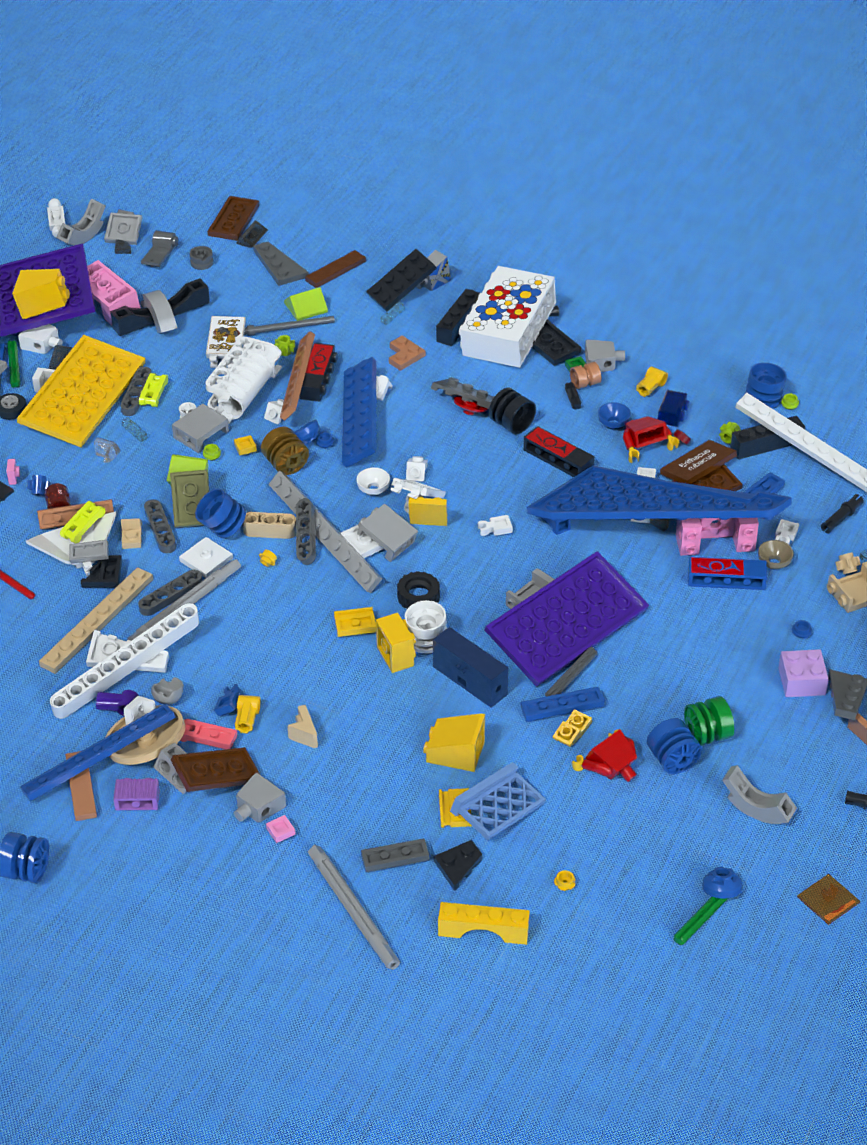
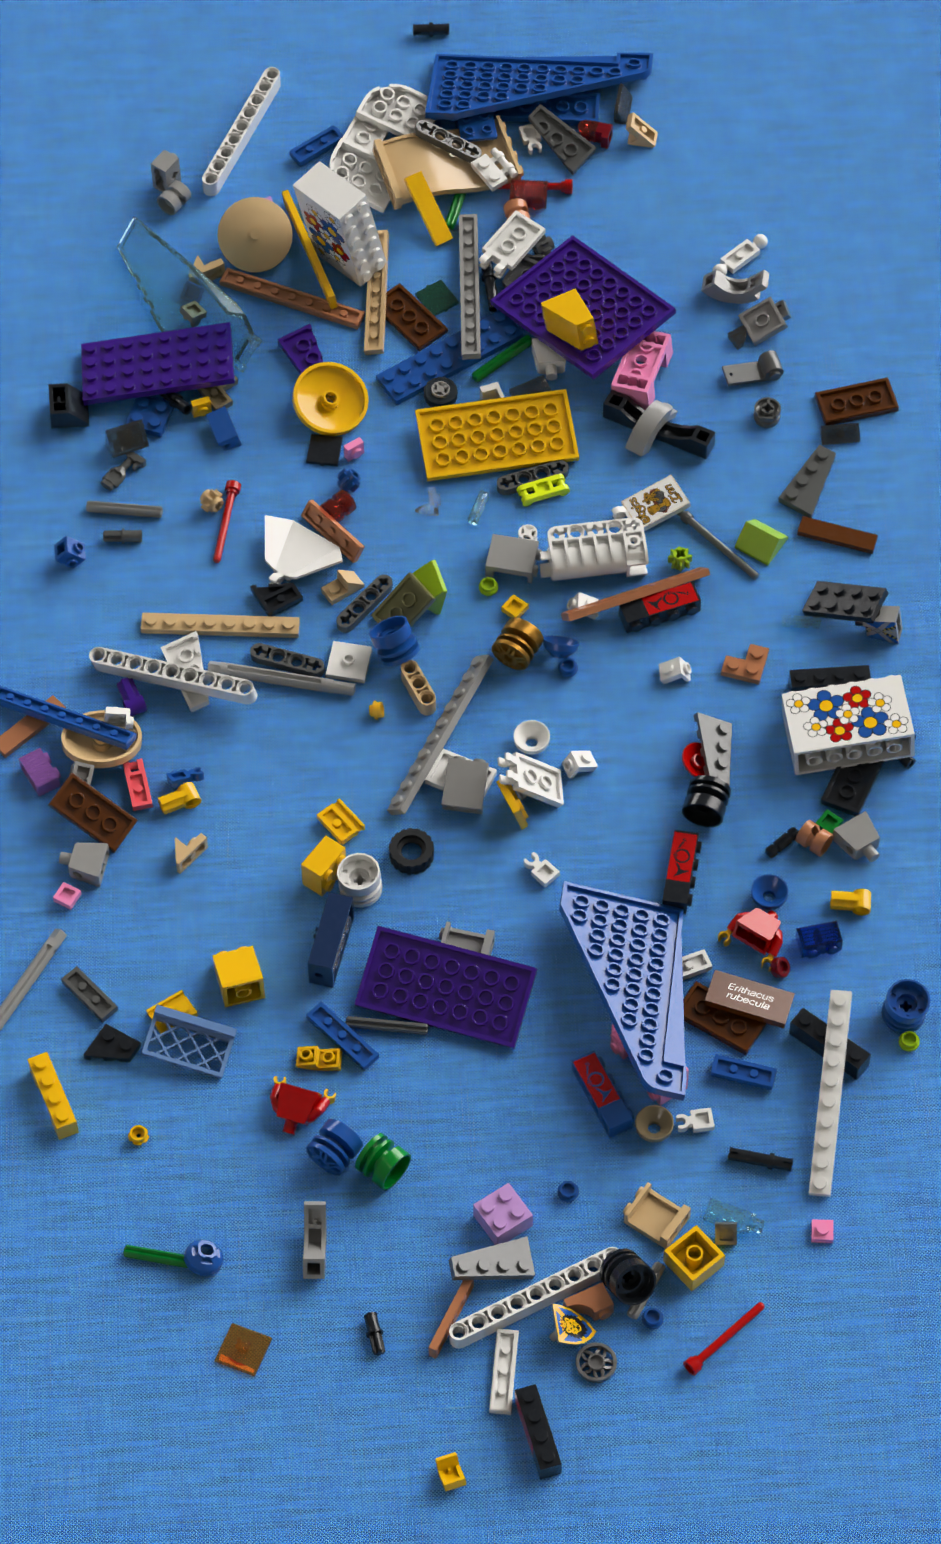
camera: 60 degrees right, 15 degrees up
(82, 521) = (319, 542): neon yellow plate -> none
(88, 551) = (284, 570): light grey plate -> none
(167, 692) = (164, 726): light grey hair -> none
(308, 530) = (447, 702): dark grey beam -> none
(359, 412) = (622, 673): blue plate -> none
(726, 431) = (814, 1005): lime gear -> none
(848, 563) = (683, 1192): tan gear -> none

